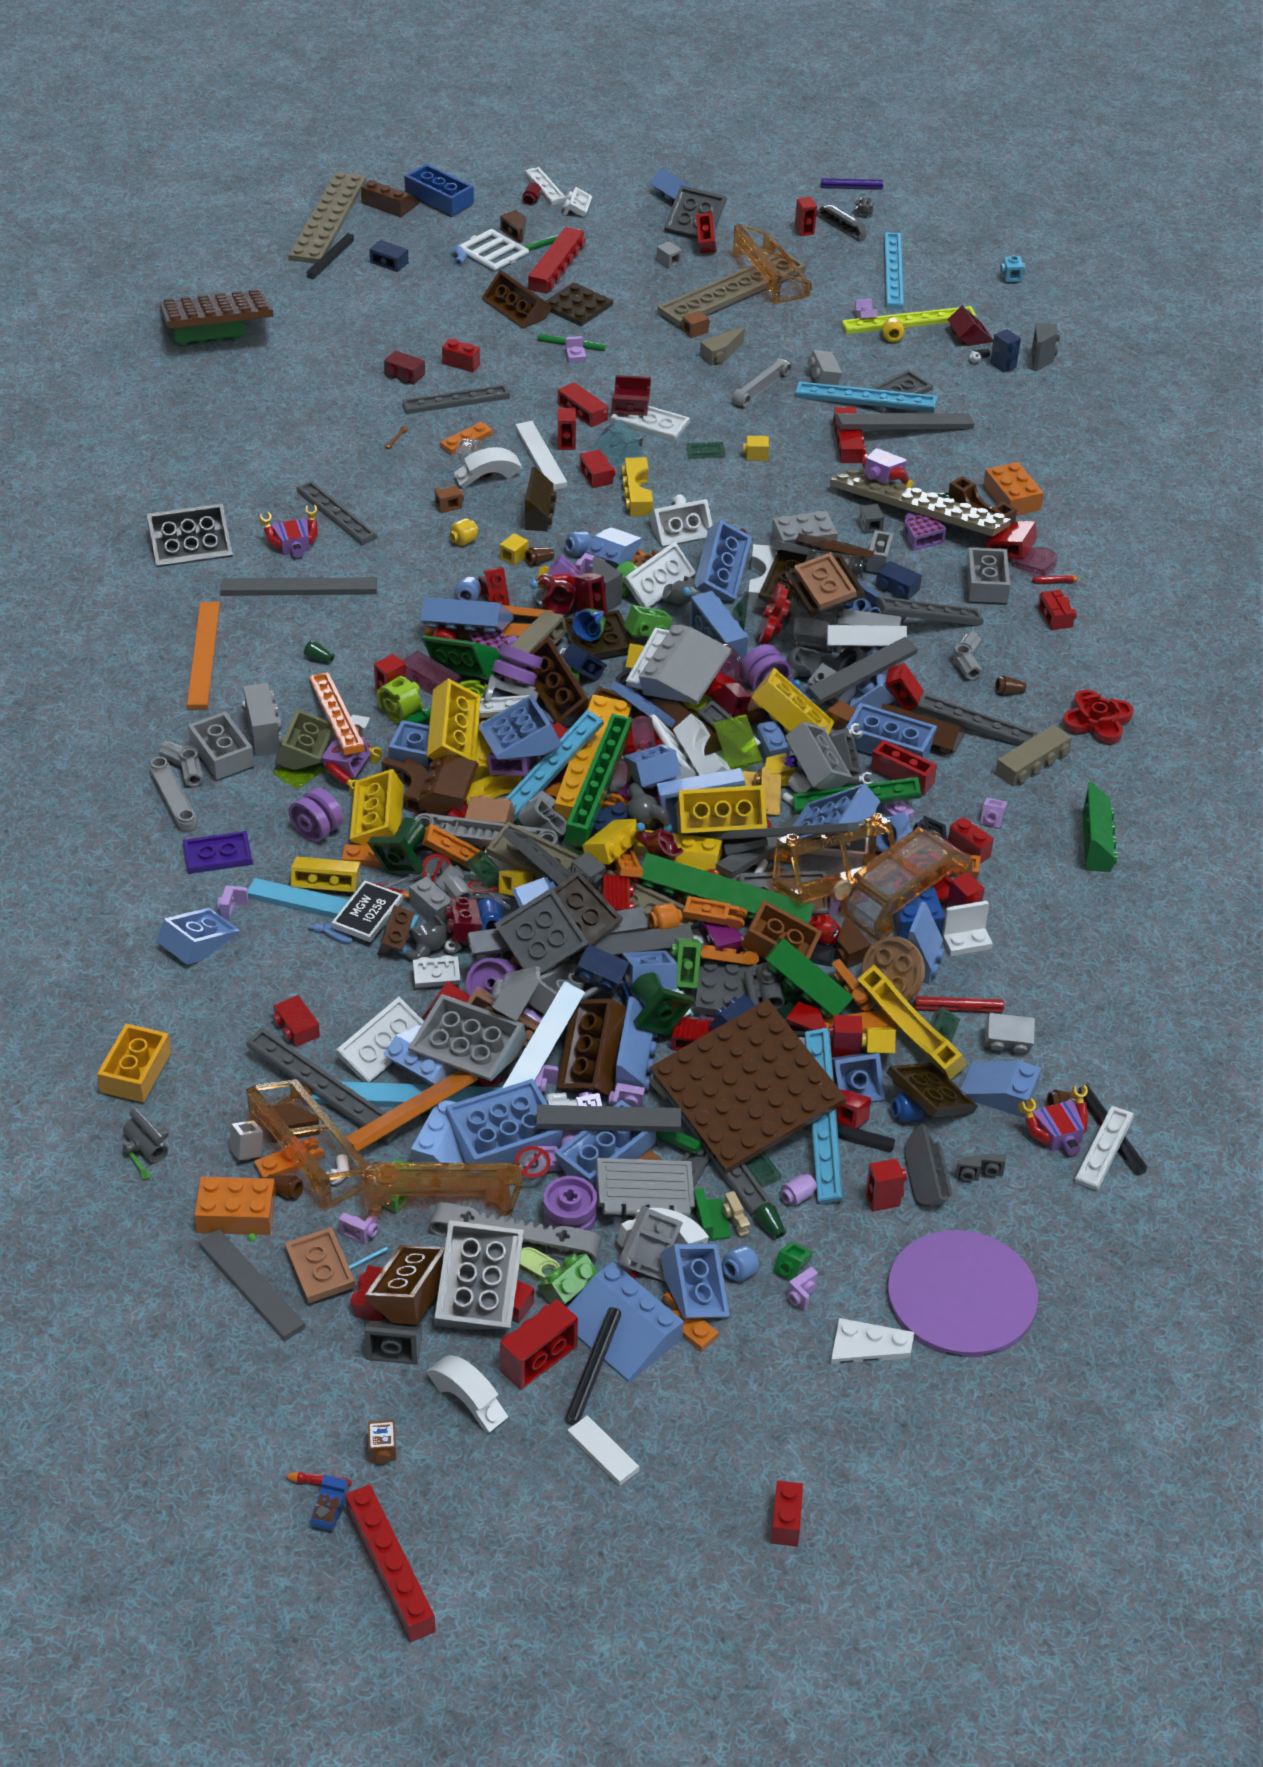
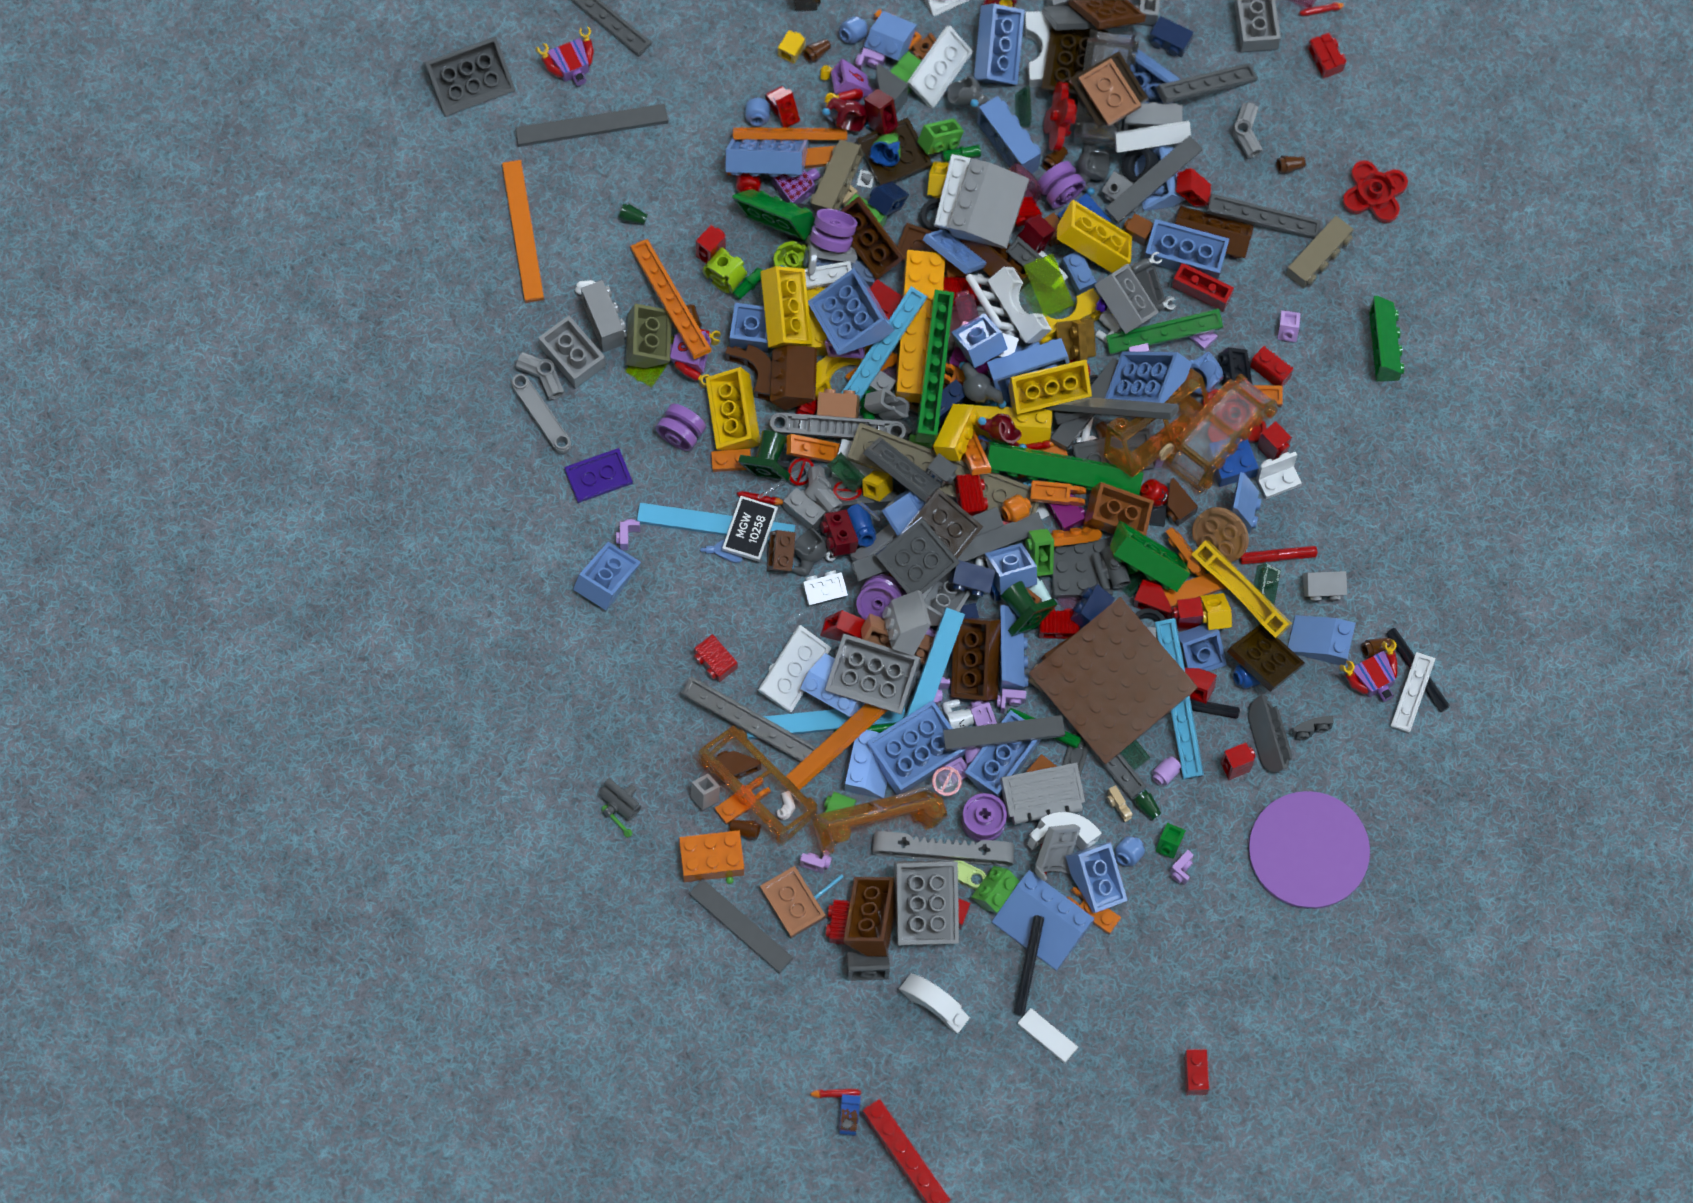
camera: 10 degrees left, 25 degrees up
(134, 1063) = (591, 726): light orange brick -> none
(325, 874) = (704, 492): yellow brick -> none
(360, 720) = (688, 293): white sticker -> none
(382, 1441) = (878, 1056): dark orange brick -> none
(427, 672) = (746, 231): clear pink brick -> none
(463, 532) = (737, 30): yellow head -> none
(538, 1344) = (983, 954): red brick -> none
(710, 1216) = (1098, 807): green panel -> none
(869, 1341) = (1239, 907): white wing -> none

